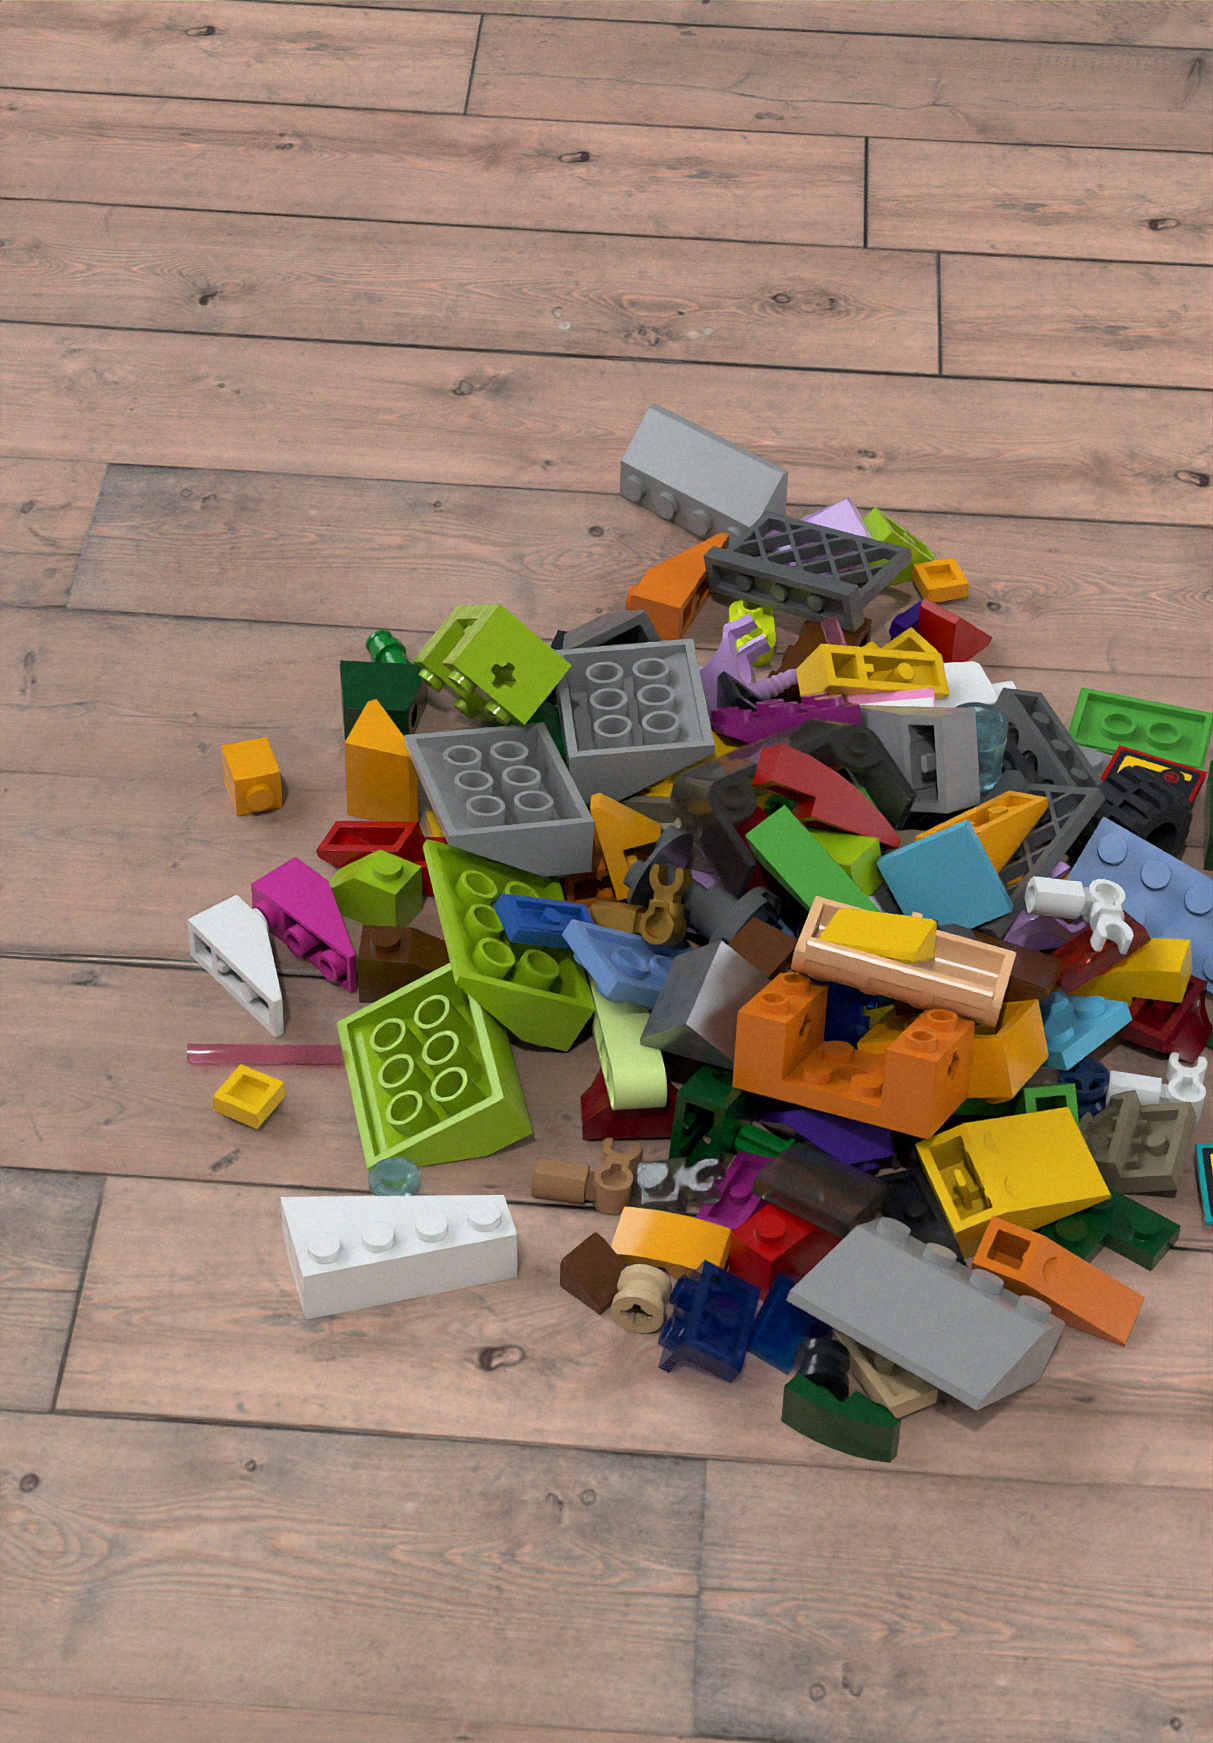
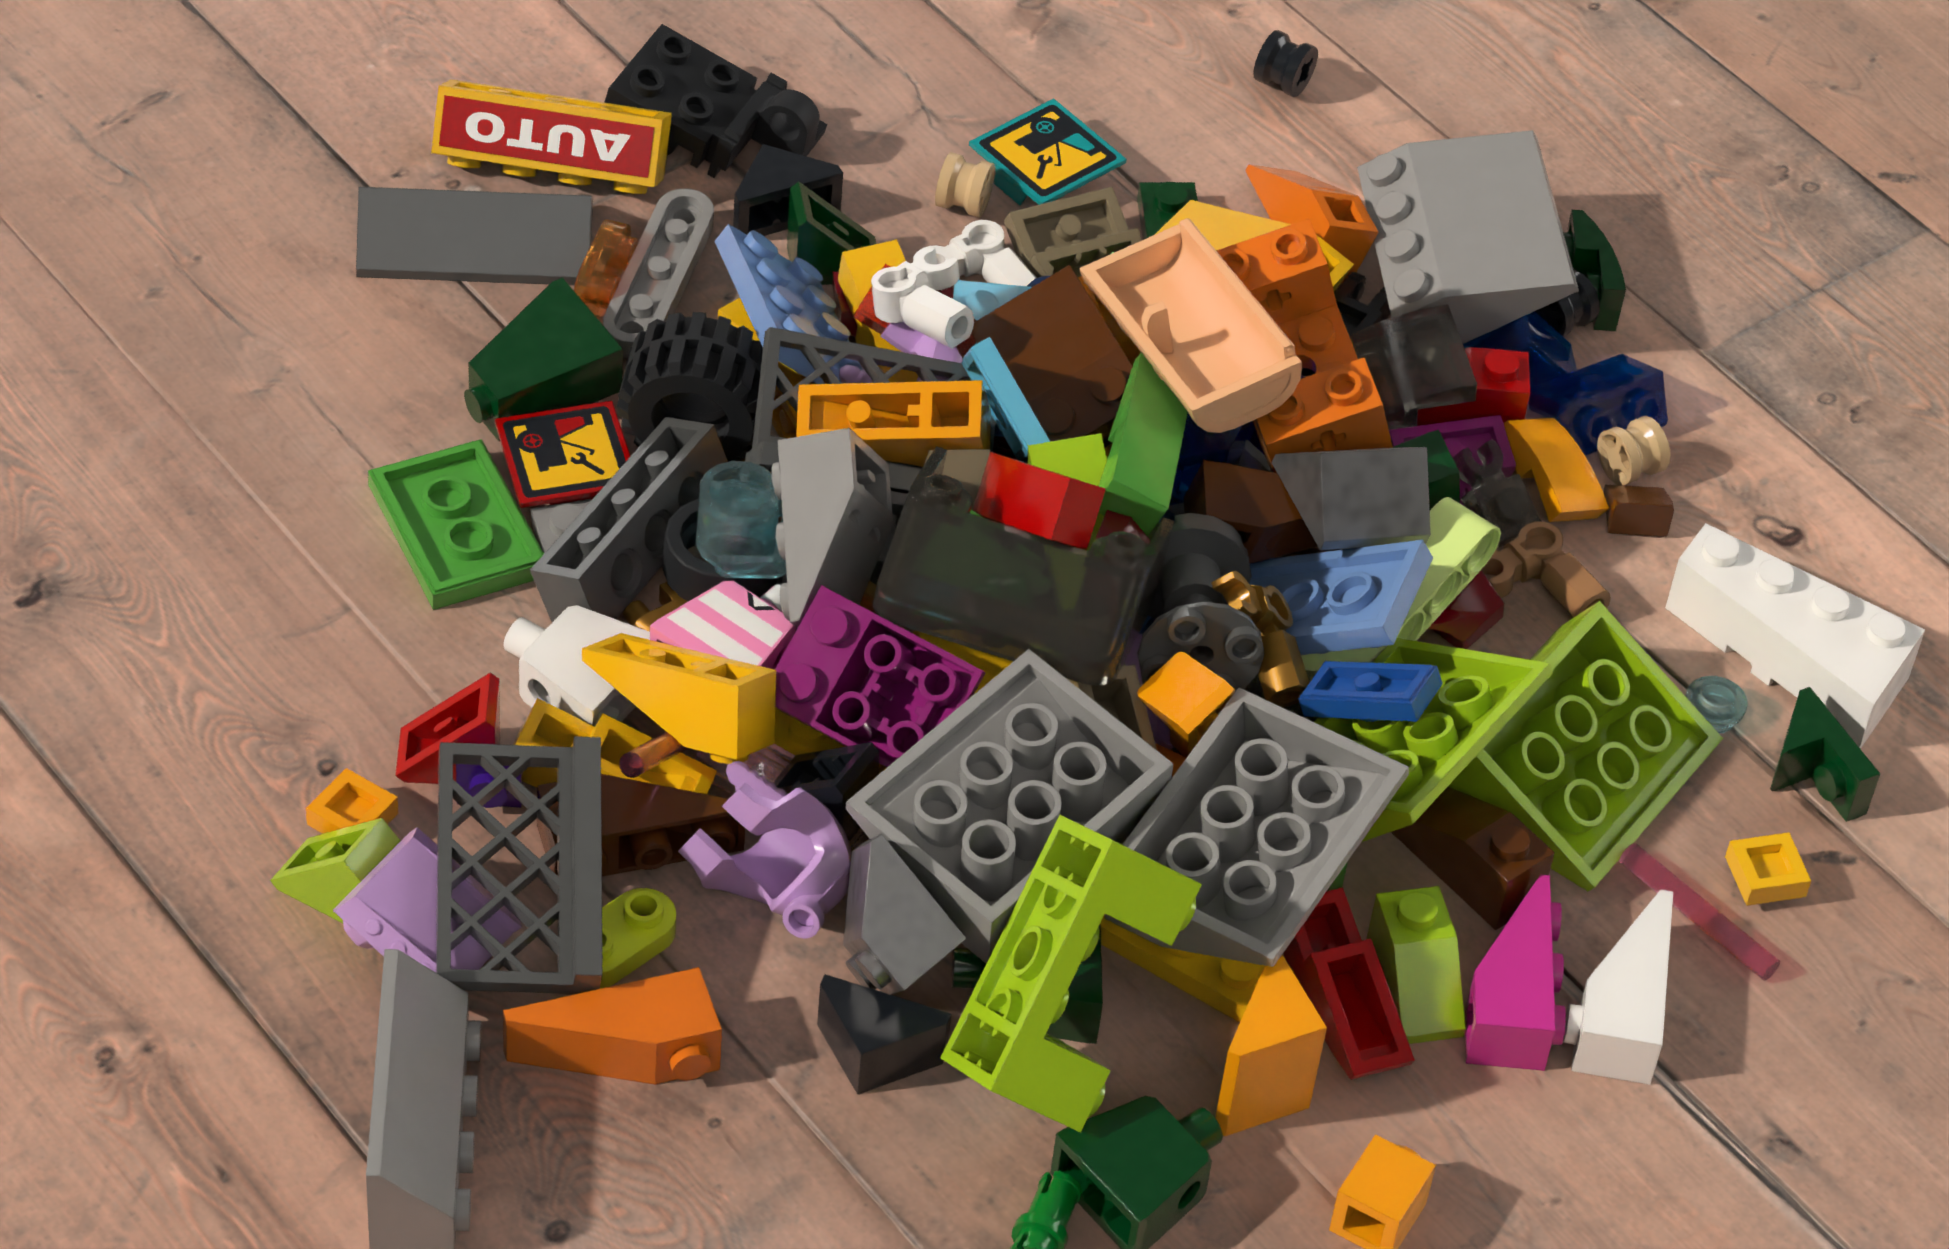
camera: 135 degrees left, 5 degrees up
(264, 1180) = (1824, 751): none -> dark green slope
(883, 934) = (1210, 326): yellow slope -> none

